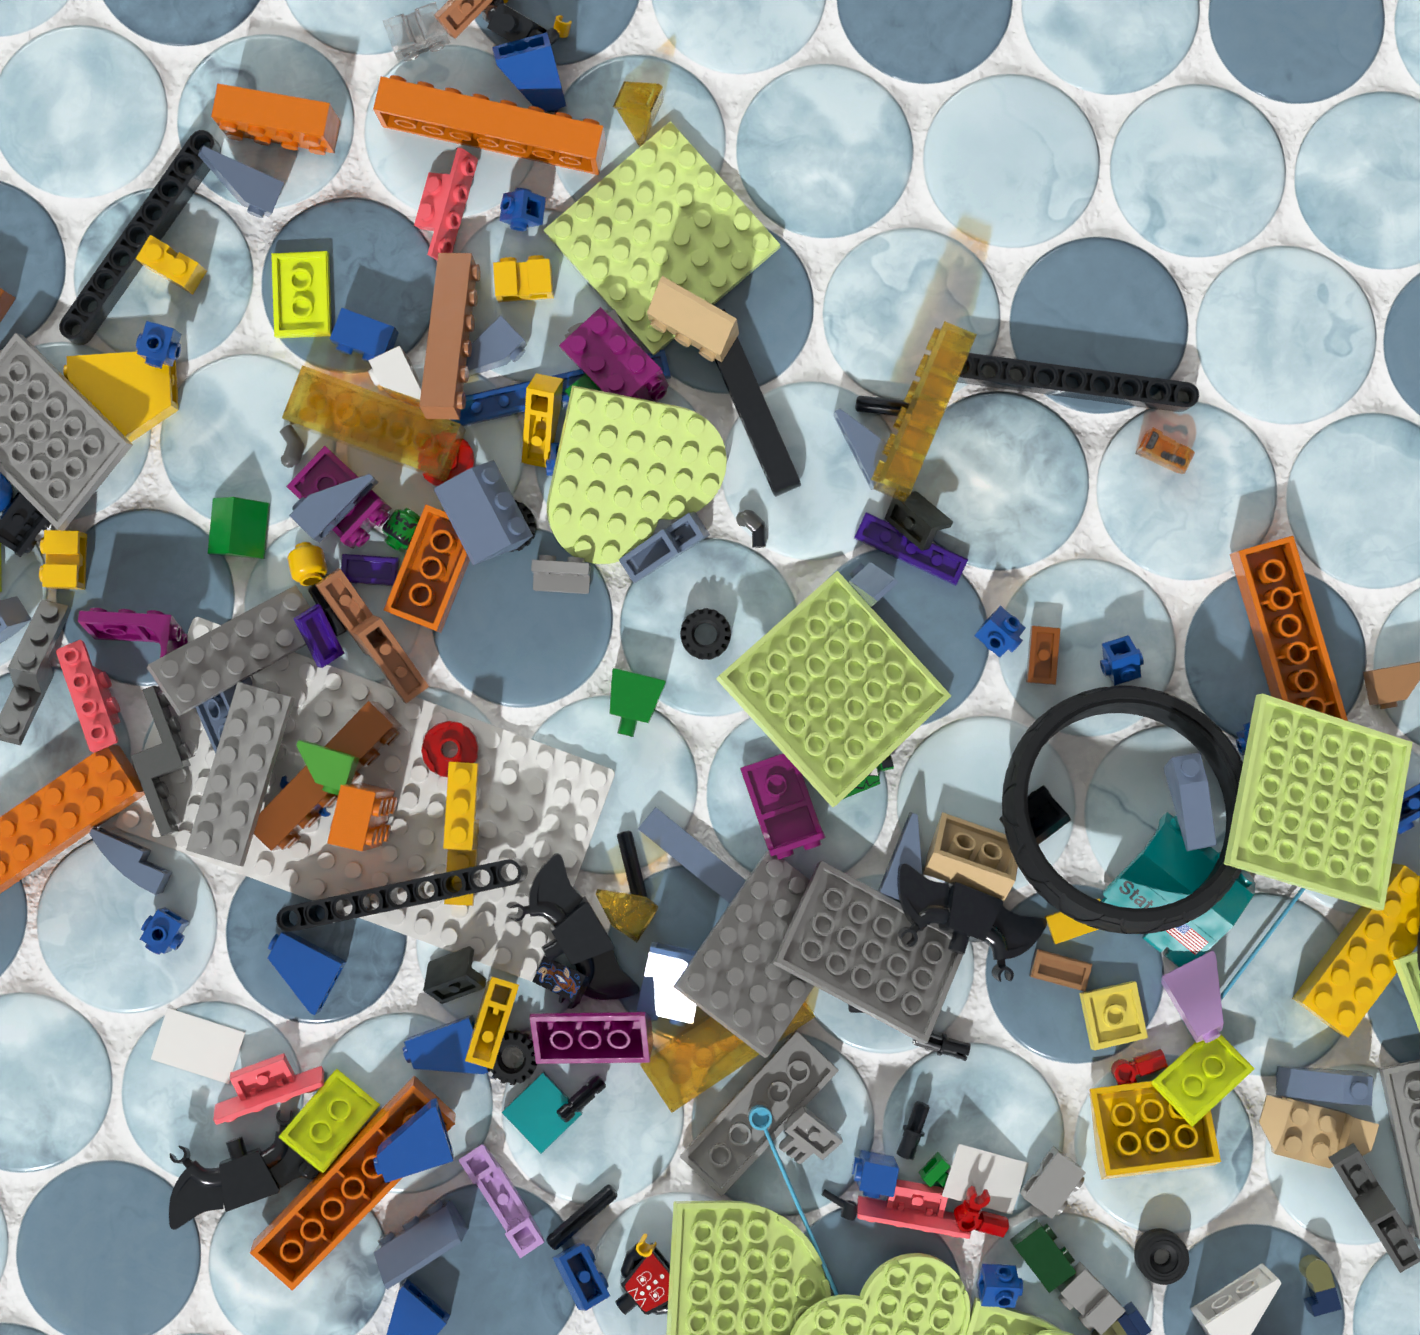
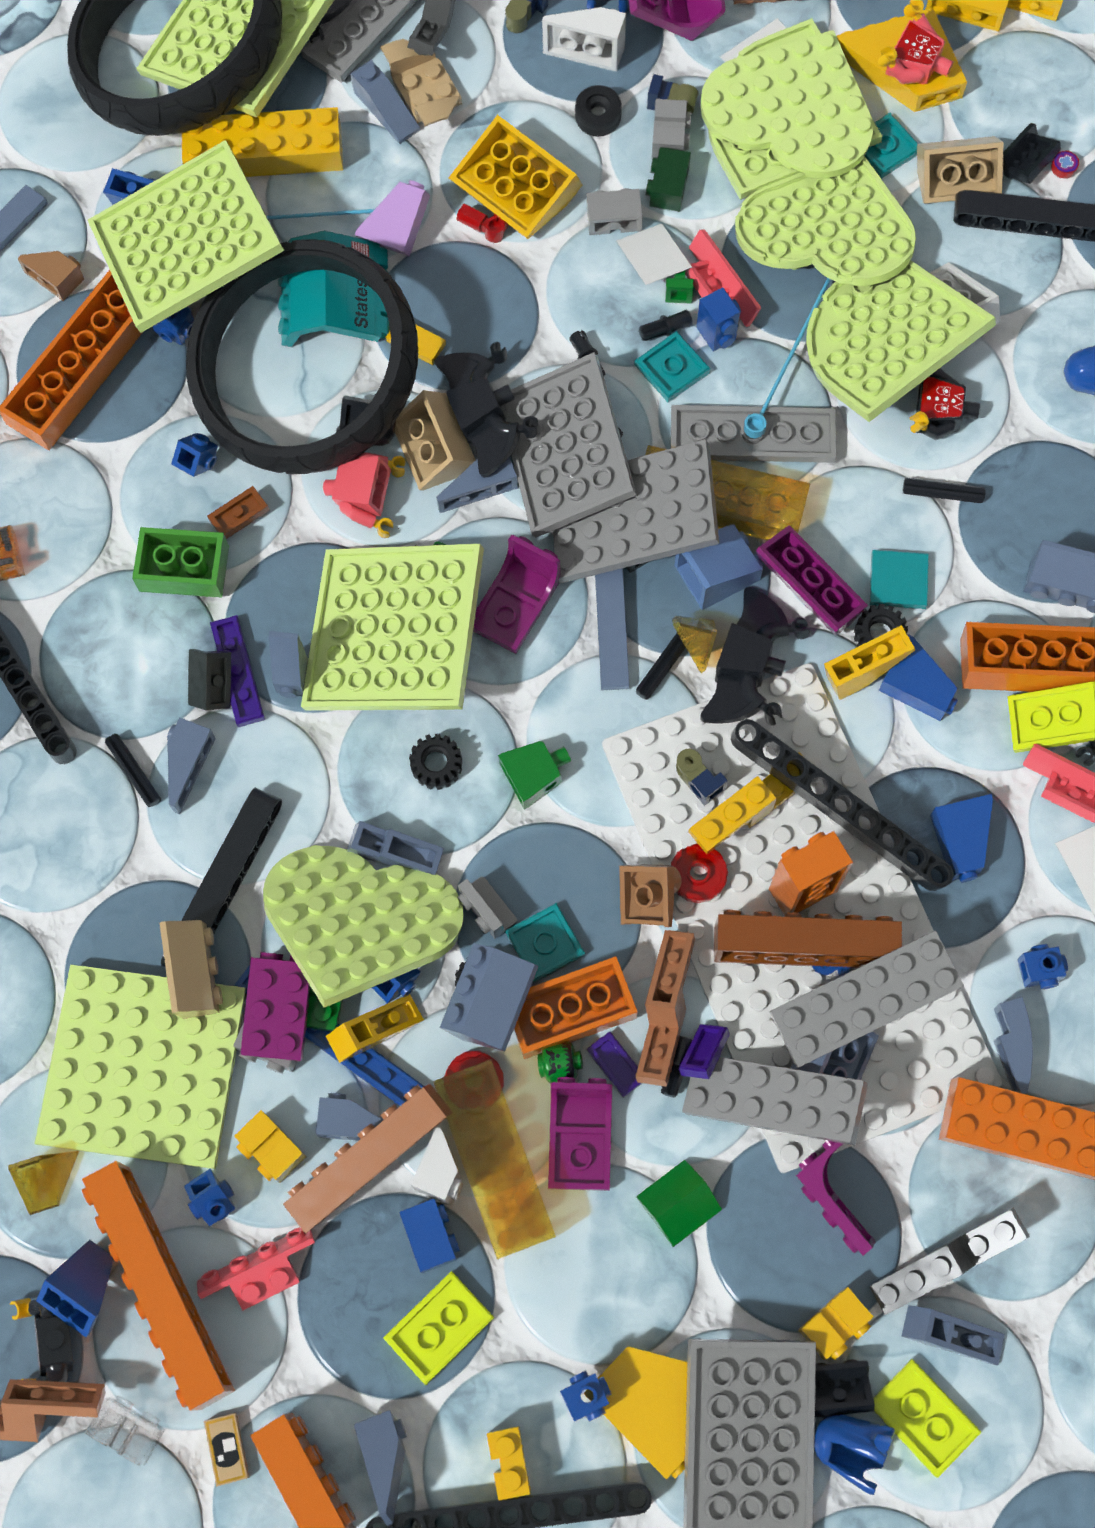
camera: 130 degrees left, 15 degrees down
(90, 696) = (922, 1191): coral bracket -> none
(161, 761) = (916, 1087): dark grey bracket -> none
(294, 448) = (571, 1214): dark grey arm -> none
(307, 564) = (656, 1115): yellow head -> none
(326, 508) = (598, 1133): sand blue slope -> none
(328, 765) = (794, 927): bright green slope -> none
(347, 89) = (226, 1449): none -> tile
(415, 1145) = (1009, 630): blue slope -> none
(453, 976) = (863, 721): pearl dark grey panel -> none
(465, 698) = (648, 893): none -> medium nougat slope
(500, 596) = (545, 941): none -> teal tile
(503, 1199) = (986, 550): lavender slope -> none
(527, 813) = (698, 777): none -> leg
(561, 980) = (791, 641): tile -> none
(581, 1098) = (862, 558): black axle -> none
(581, 1276) = (983, 451): blue brick -> none
(755, 525) = (317, 797): arm -> none
(808, 1136) = (735, 387): light grey hinge -> none
(849, 1207) = (760, 323): black hand -> none
(874, 1104) = (672, 366): none -> teal tile
(925, 409) = (117, 730): clear yellow brick -> none
(970, 1217) = (684, 236): red bar -> none
(977, 765) = (362, 488): none -> coral torso
(999, 1285) = (717, 187): blue brick -> none
(1001, 632) = (246, 553): blue brick -> none
(1035, 575) = (181, 562): none -> bright green brick
(1060, 970) = (461, 324): medium nougat tile -> none
(1113, 1015) = (461, 265): light yellow plate -> none
(1191, 800) = (256, 309): sand blue slope -> none
(1202, 1078) = (452, 173): neon yellow tile -> none

